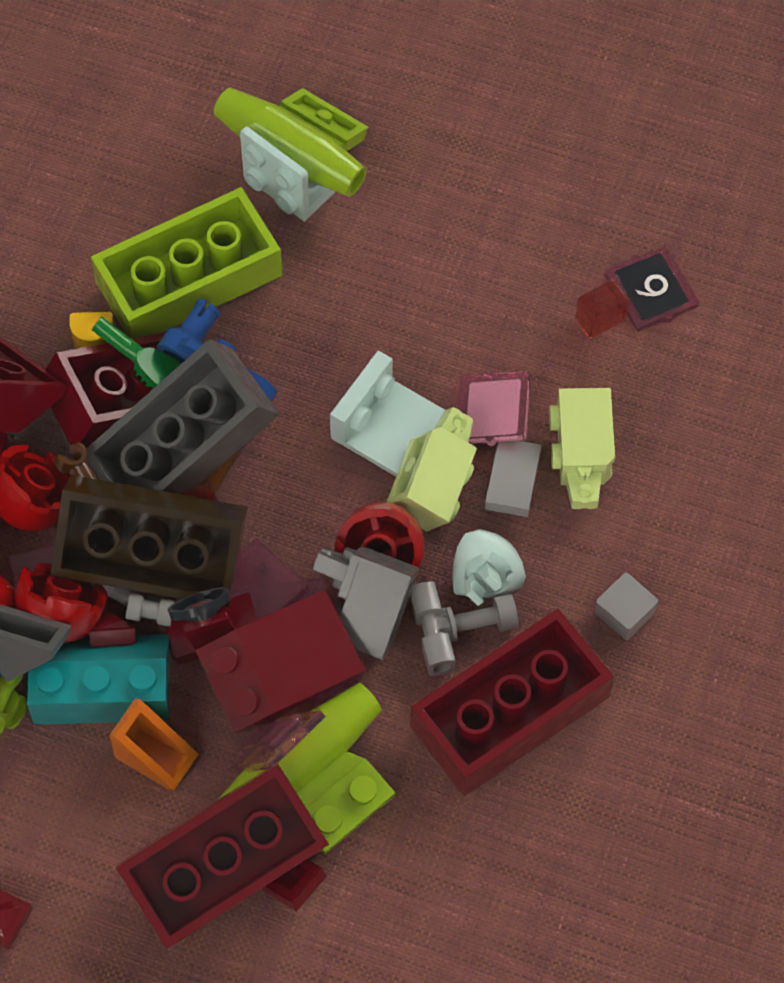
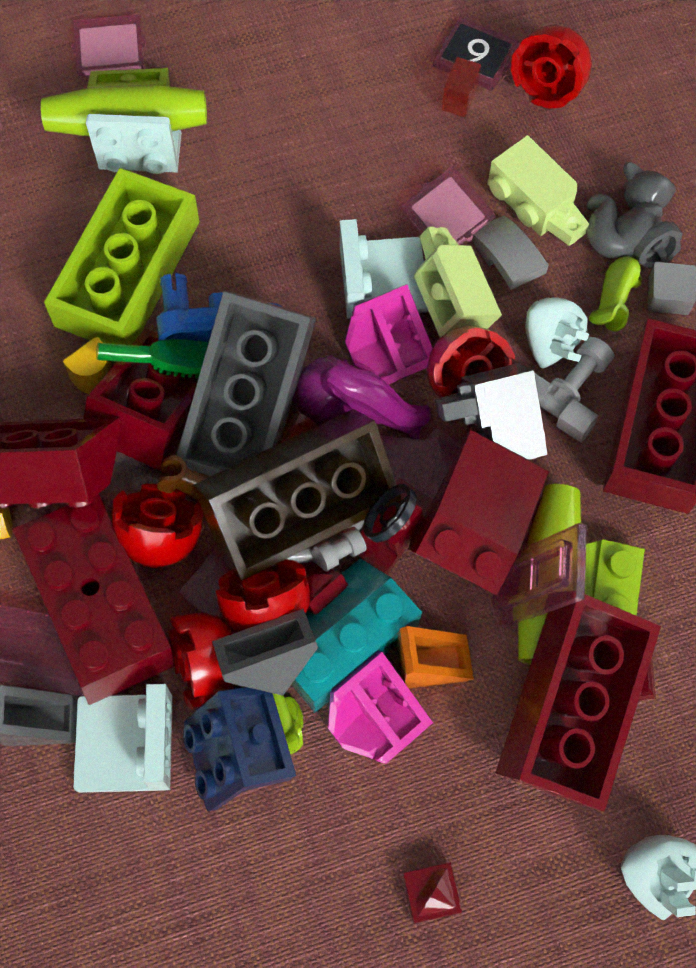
camera: 40 degrees left, 5 degrees up
(74, 753) = (375, 711): none -> dark pink slope
(261, 483) = (335, 387): none -> magenta hair
(341, 74) = (108, 44): none -> clear pink piece
(346, 473) = (388, 336): none -> dark pink slope
(588, 565) = (618, 280): none -> lime piece
(641, 537) = (639, 230): none -> dark grey animal
(697, 343) = (552, 65): none -> red cylinder

